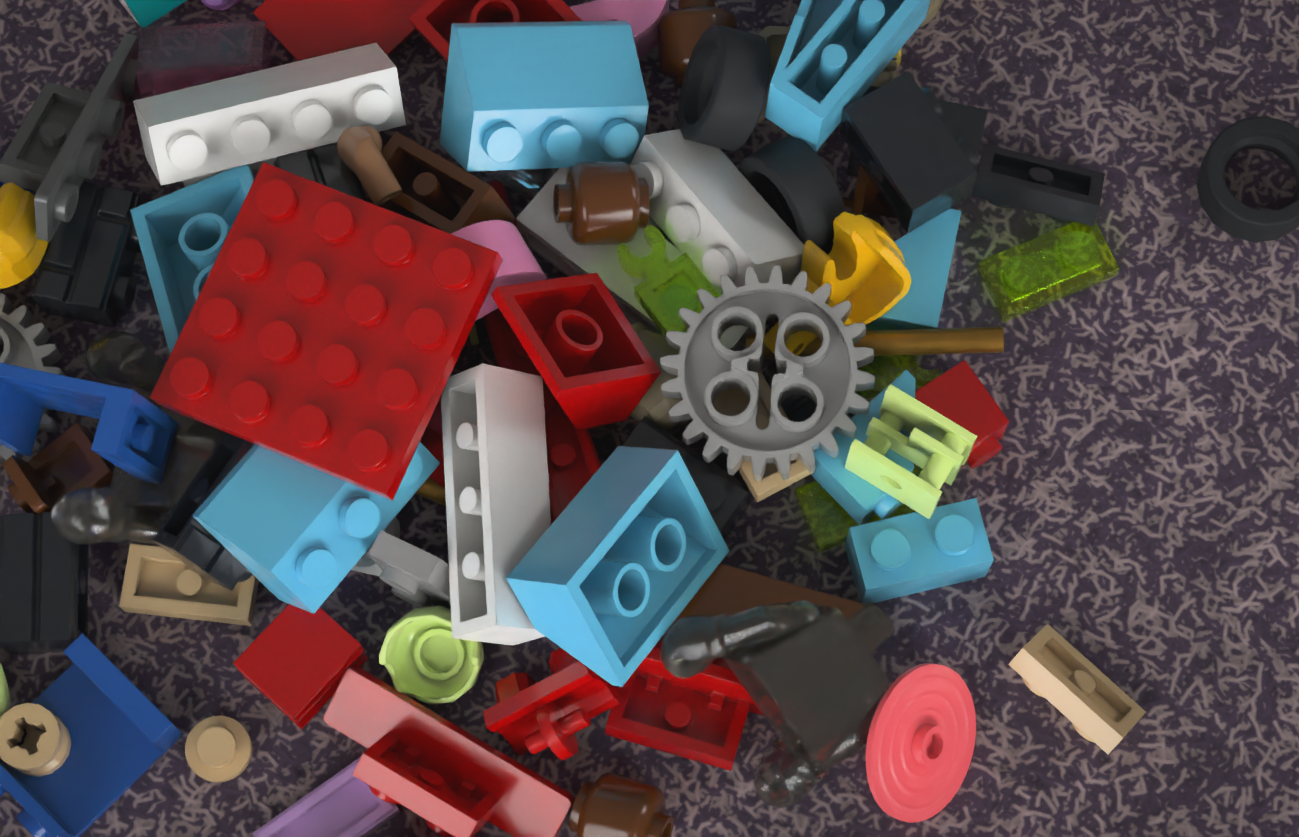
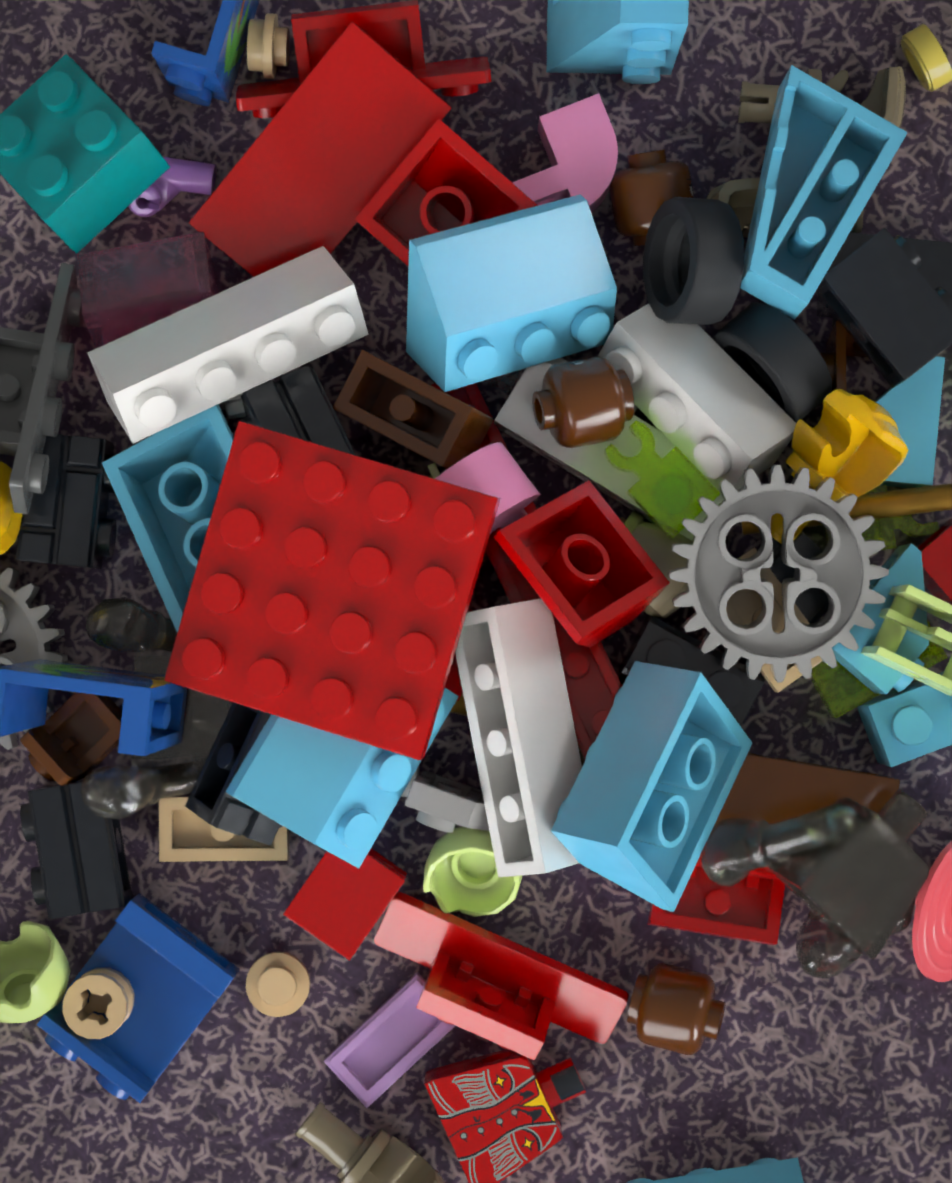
camera: 10 degrees left, 15 degrees up
(361, 152) = (330, 380): medium nougat arm -> none
(551, 710) = (589, 923): red hips -> none

